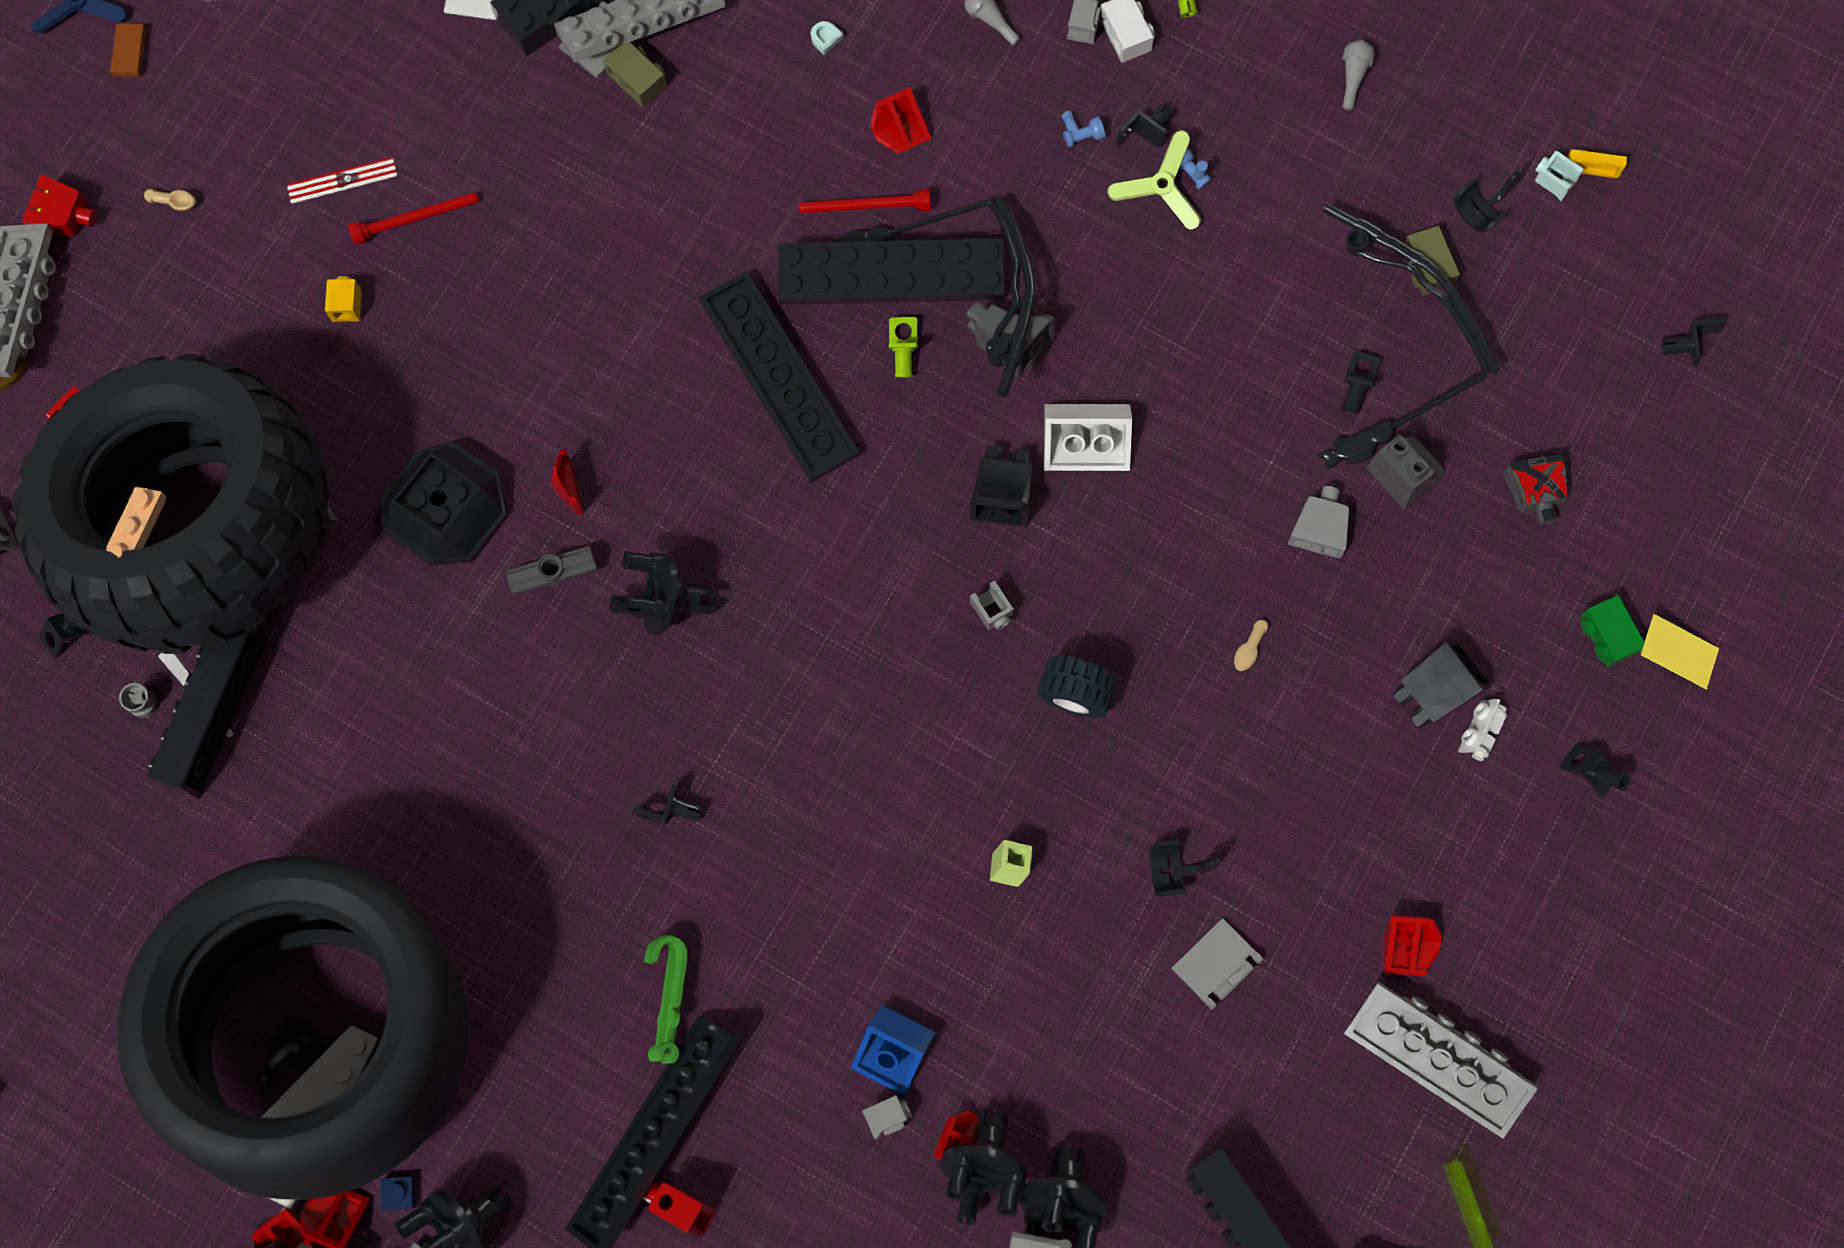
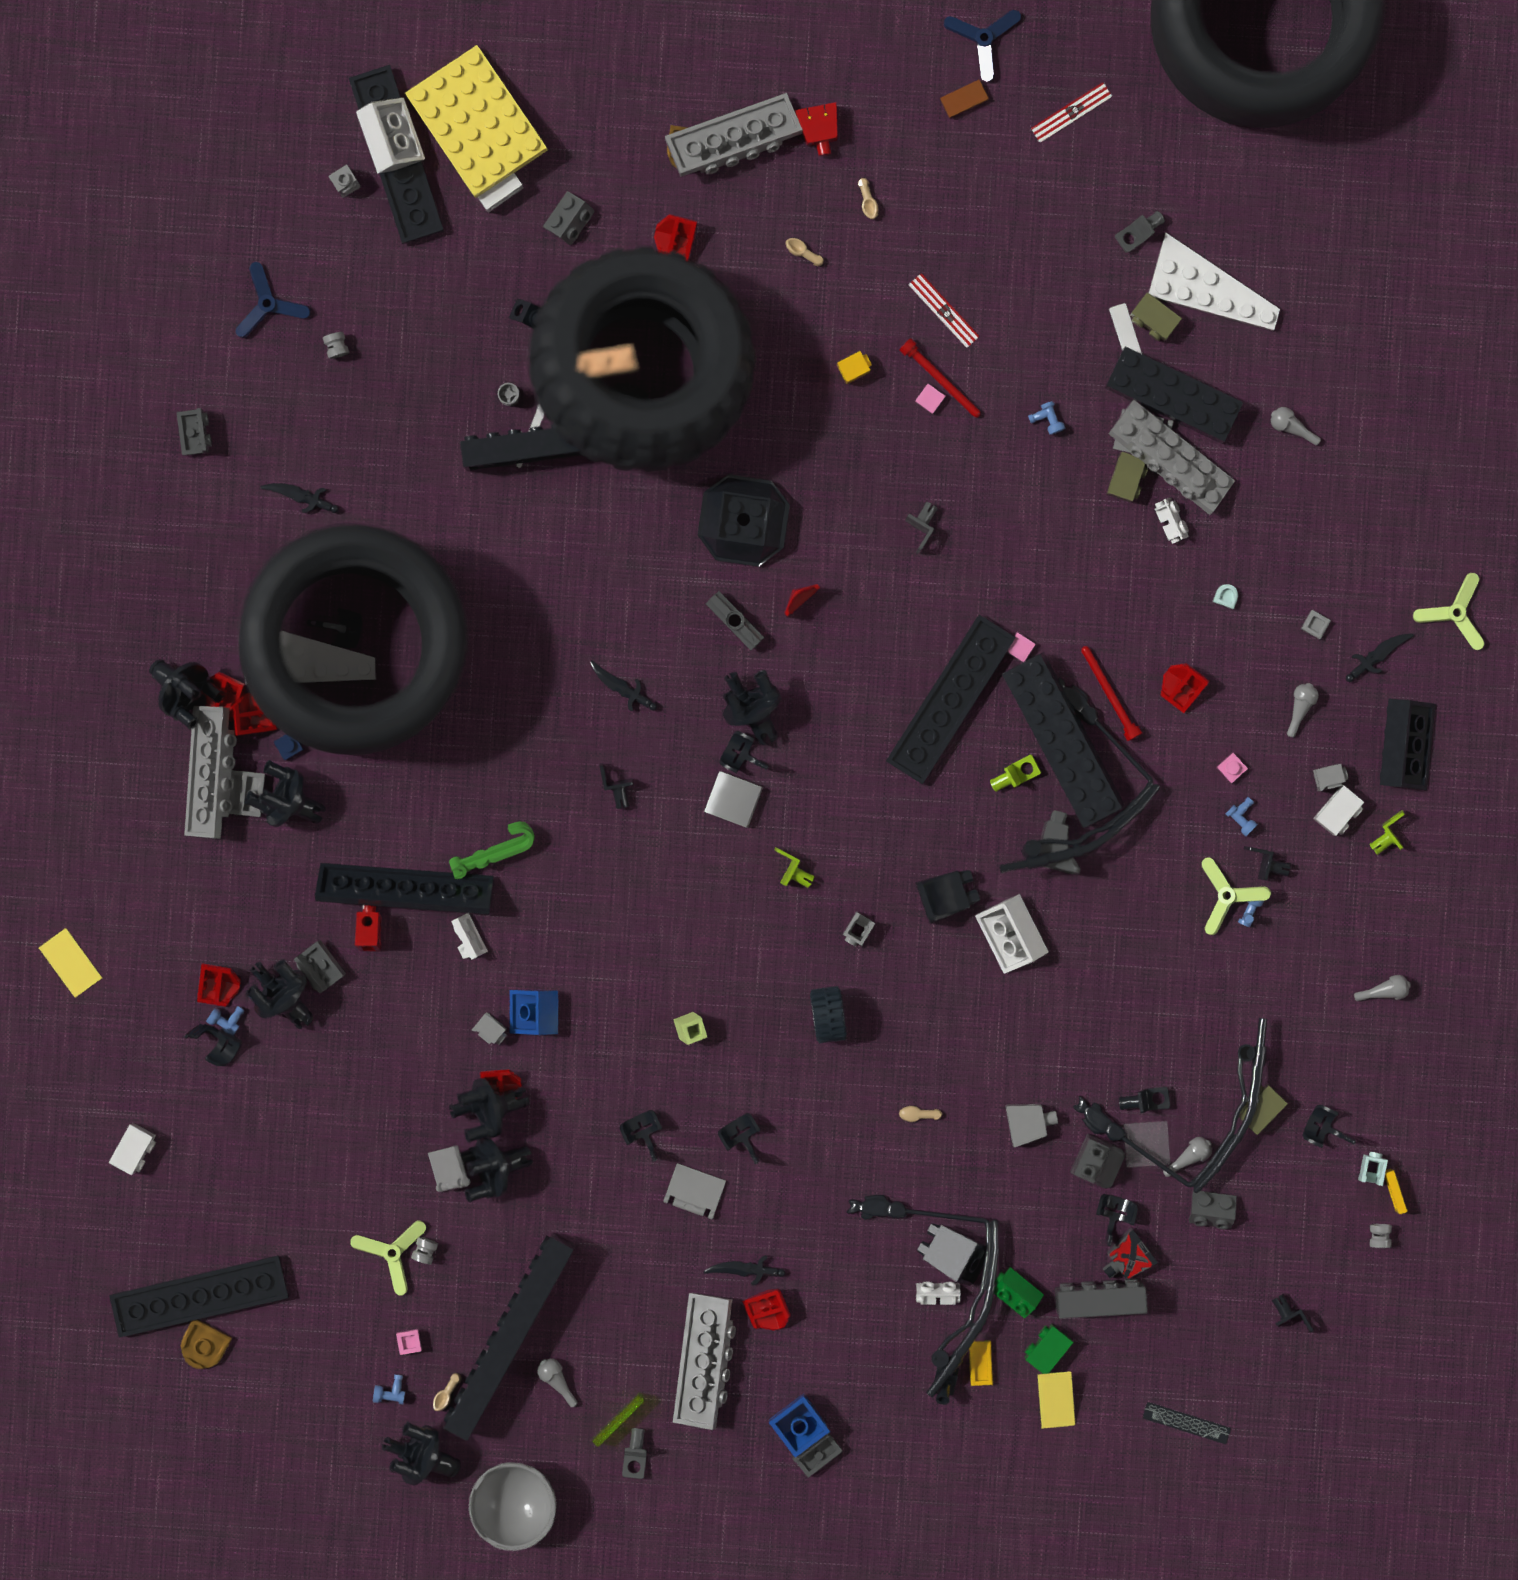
camera: 60 degrees right, 15 degrees up
(97, 1022) = (302, 496): none -> black piece
(178, 296) = (799, 248): none -> tan piece
(428, 238) = (930, 398): none -> bright pink tile
(516, 121) = (1048, 411): none -> medium blue piece
(559, 742) = (623, 688): none -> black piece
(561, 311) = (922, 521): none -> dark grey bracket
(695, 642) = (735, 743): none -> black helmet
(699, 49) = (1177, 527): none -> white hinge
(749, 1083) = (467, 932): none -> white hinge
(761, 677) = (733, 799): none -> light grey slope
(762, 273) = (1021, 647): none -> bright pink tile
(882, 648) = (794, 872): none -> lime bracket
(1020, 117) = (1232, 767): none -> bright pink plate
(1096, 979) = (632, 1124): none -> black helmet
(1343, 747) = (880, 1207): none -> black piece
(1345, 950) = (745, 1269): none -> black piece
(1406, 396) = (1151, 1138): none -> clear tile
(1446, 351) = (1198, 1150): none -> light grey piece
(1491, 462) = (1123, 1205): none -> black helmet
(1523, 1208) = (635, 1453): none -> dark grey bracket
(1525, 368) = (1213, 1210): none -> dark grey bracket
(1525, 633) = (1017, 1292): none -> green brick
(1578, 538) = (1100, 1299): none -> dark grey brick
(1578, 976) = (799, 1425): none -> blue slope
(1593, 721) = (980, 1363): none -> yellow tile
(1621, 974) = (818, 1455): none -> dark grey bracket
(1646, 204) = (1382, 1240): none -> light grey wheel
(1771, 519) = (1186, 1423): none -> black sticker

